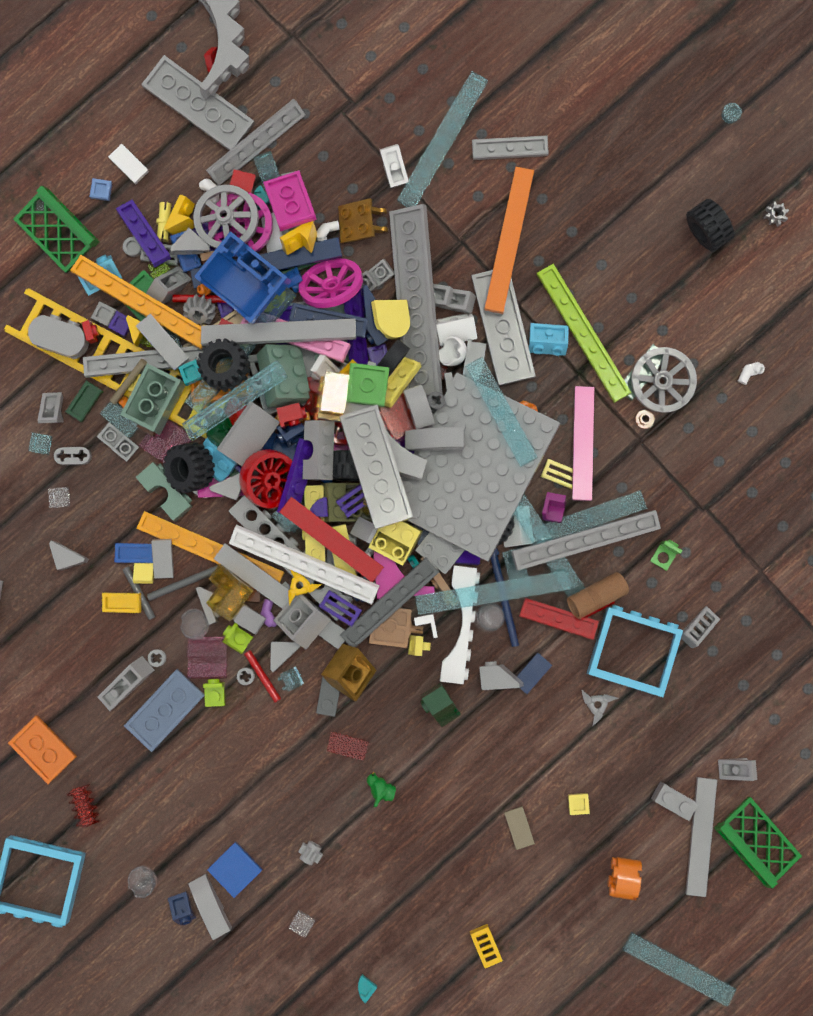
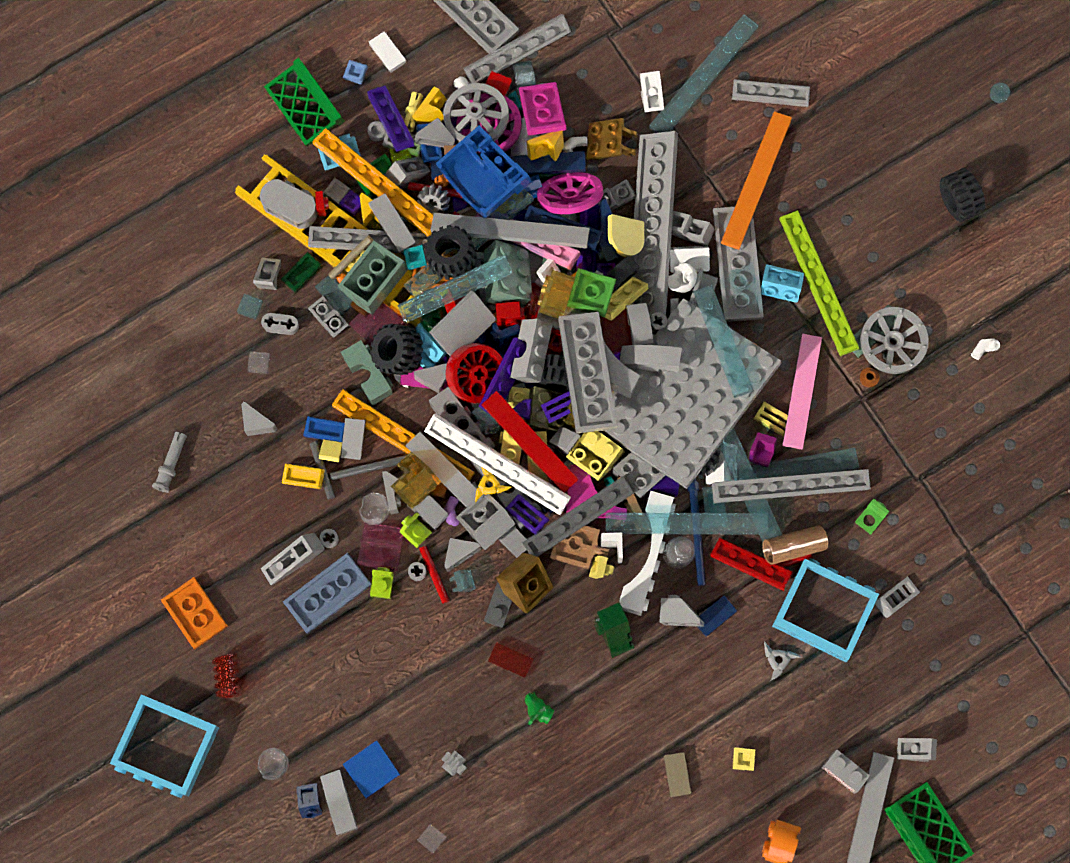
camera: 10 degrees right, 10 degrees down
(771, 214) = (1032, 190): light grey gear -> none

